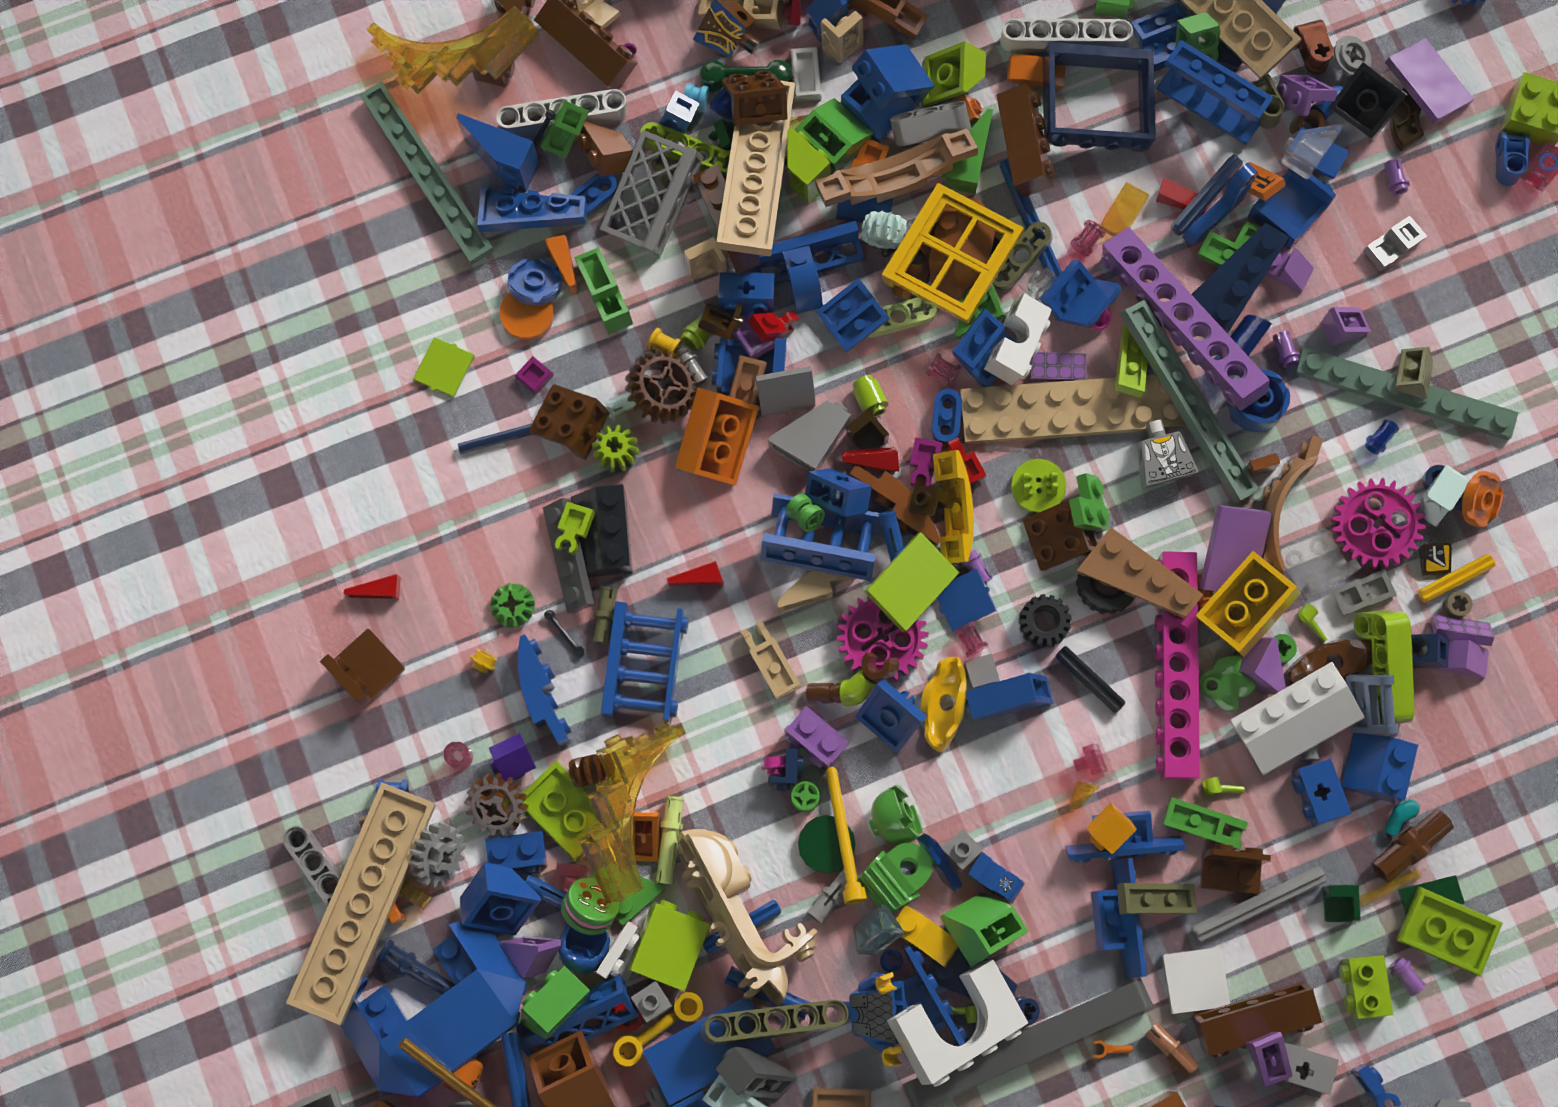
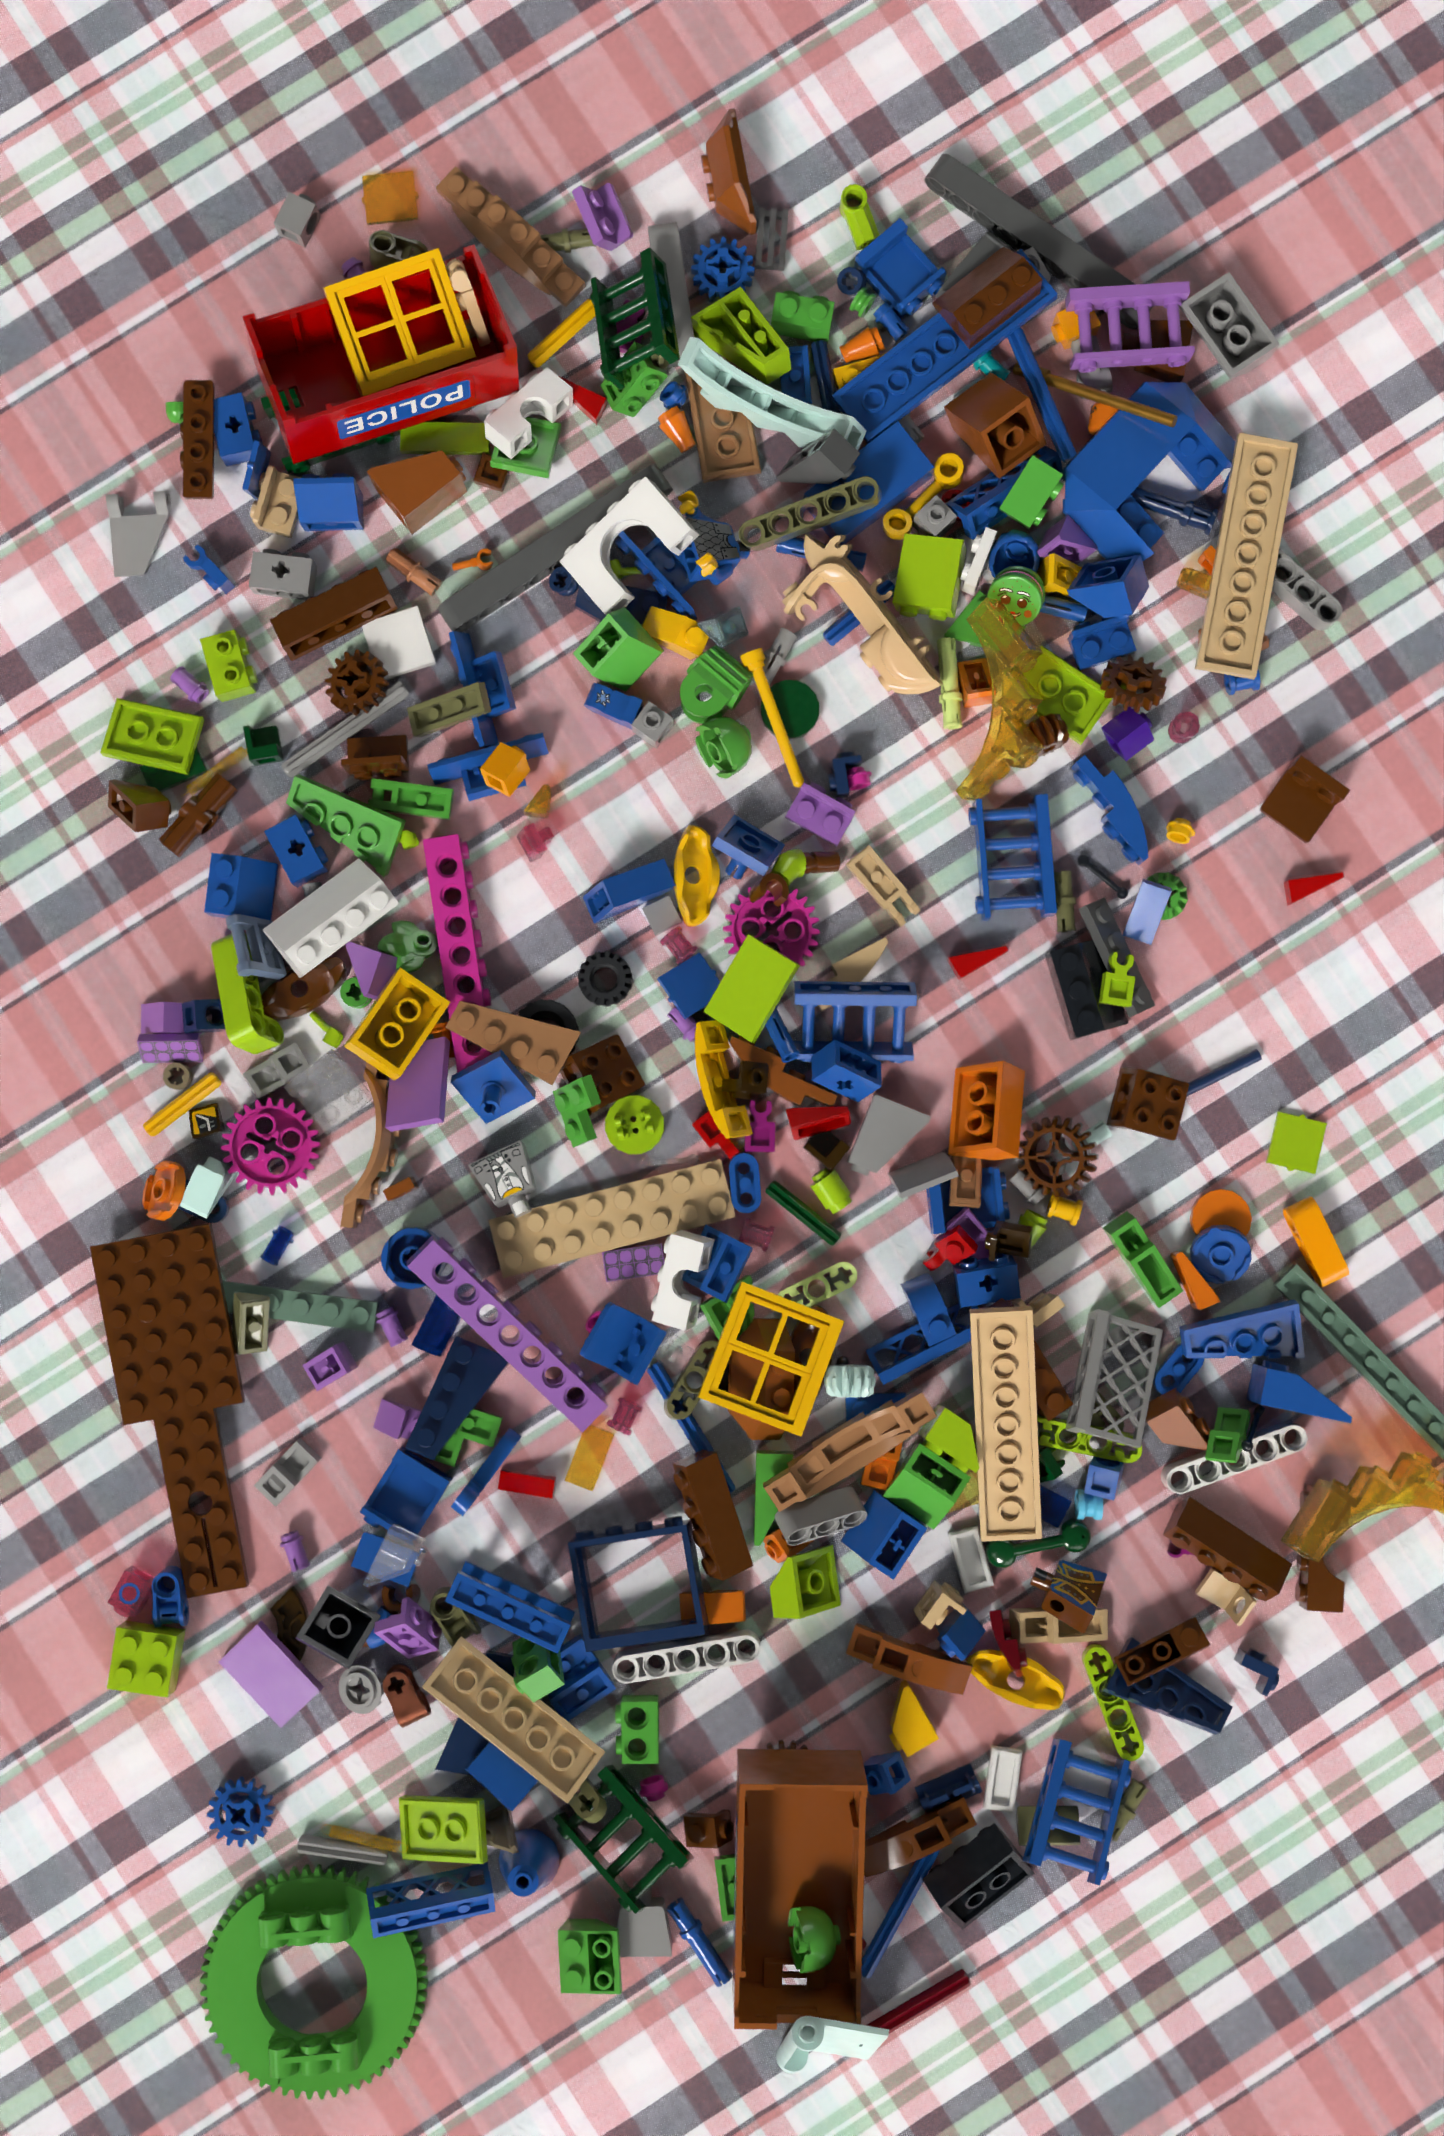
camera: 165 degrees right, 10 degrees up
(436, 857) = (1181, 619): light grey gear -> none
(448, 278) = (1315, 1241): none -> light orange beam
(531, 589) = (1147, 911): none -> tile
(534, 375) = (1196, 1150): magenta tile -> none
(545, 922) = (1057, 573): none -> yellow slope
(571, 873) = (1042, 631): clear pink tile -> none
(624, 440) = (1097, 1074): lime gear -> none
(756, 98) = (1022, 1507): reddish brown bracket -> none
(802, 510) = (877, 1039): bright green wheel -> none
(805, 792) = (820, 745): bright green wheel -> none
(852, 315) = (866, 1277): blue slope -> none
(883, 961) = (703, 611): clear blue pin -> none
(892, 74) = (873, 1564): blue panel -> none
(898, 383) = (803, 1212): none -> dark green axle
(940, 862) = (673, 706): tile -> none
(1090, 679) = (548, 927): black axle -> none
(1130, 366) = (555, 1280): lime plate -> none
(1165, 535) = (493, 1086): none -> blue tile
(1189, 401) = (489, 1243): sand green plate -> none
(1206, 195) = (501, 1490): dark blue axle -> none
(1242, 960) = (356, 682): none -> reddish brown gear
(1255, 804) = (356, 824): none -> bright green wing
(1265, 183) = (439, 1512): orange tile -> none
(1270, 1058) = (317, 572): medium lavender slope -> none
(1401, 813) = (213, 843): teal arm -> none
(1469, 862) = (139, 805): none -> reddish brown slope
(1483, 346) = (175, 1367): none -> reddish brown piece

